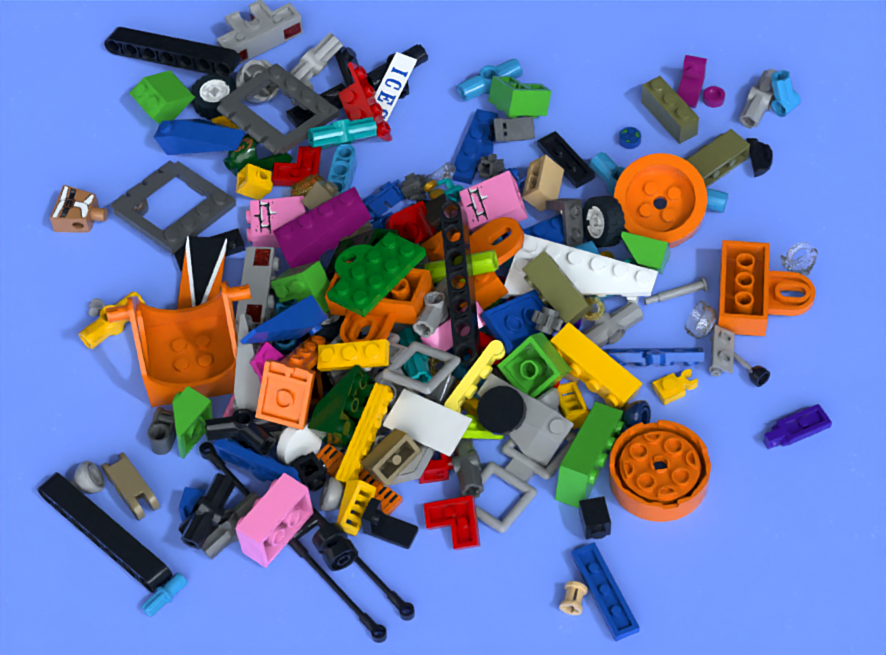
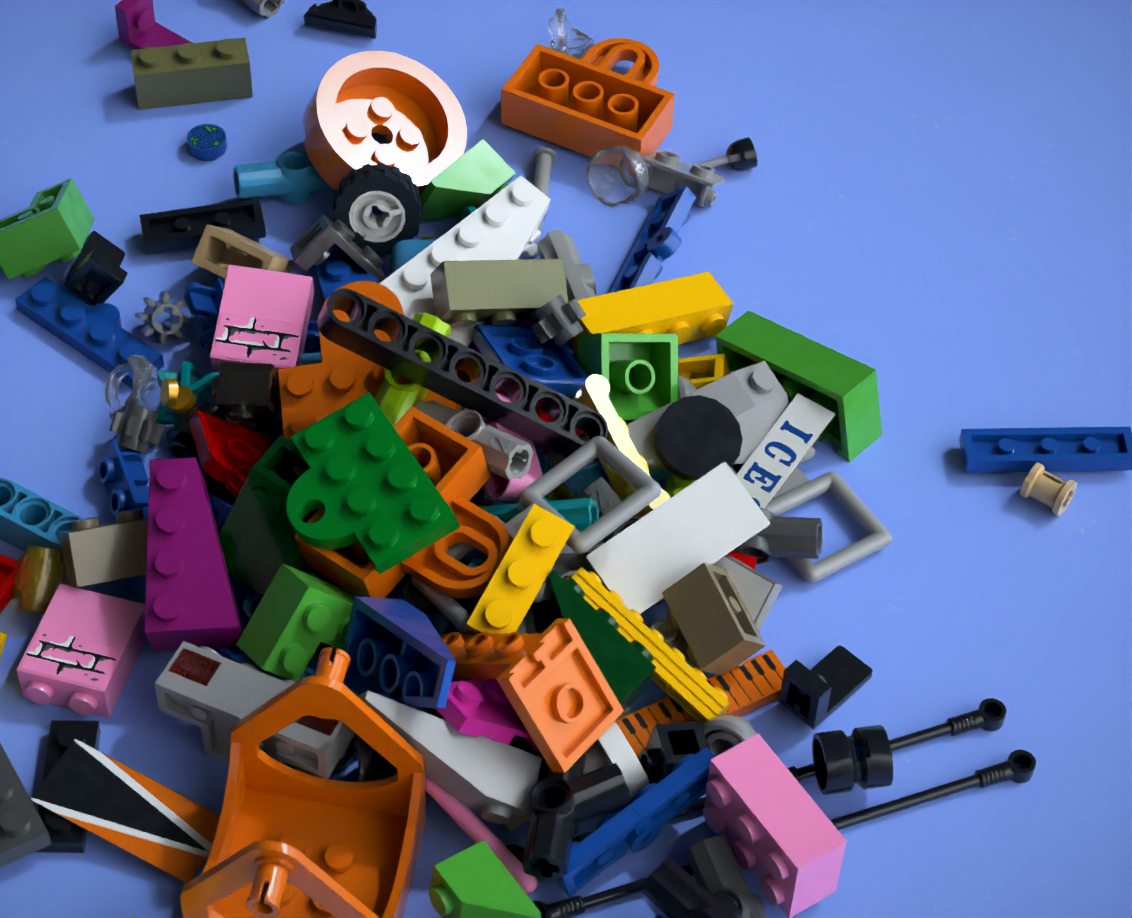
camera: 75 degrees left, 5 degrees down
(354, 491) = (765, 706): yellow slope -> none
(460, 515) = (848, 578): red plate -> none
(519, 456) = (783, 449): none -> white sticker
(595, 518) = (923, 412): black brick -> none
(635, 413) = (755, 298): dark blue brick -> none
(665, 492) = (896, 336): orange brick -> none
(672, 387) = (711, 253): yellow plate -> none
(713, 96) = (192, 25): magenta tile -> none
(720, 156) = (315, 46): olive brick -> none
(797, 427) = (851, 147): dark purple hinge -> none

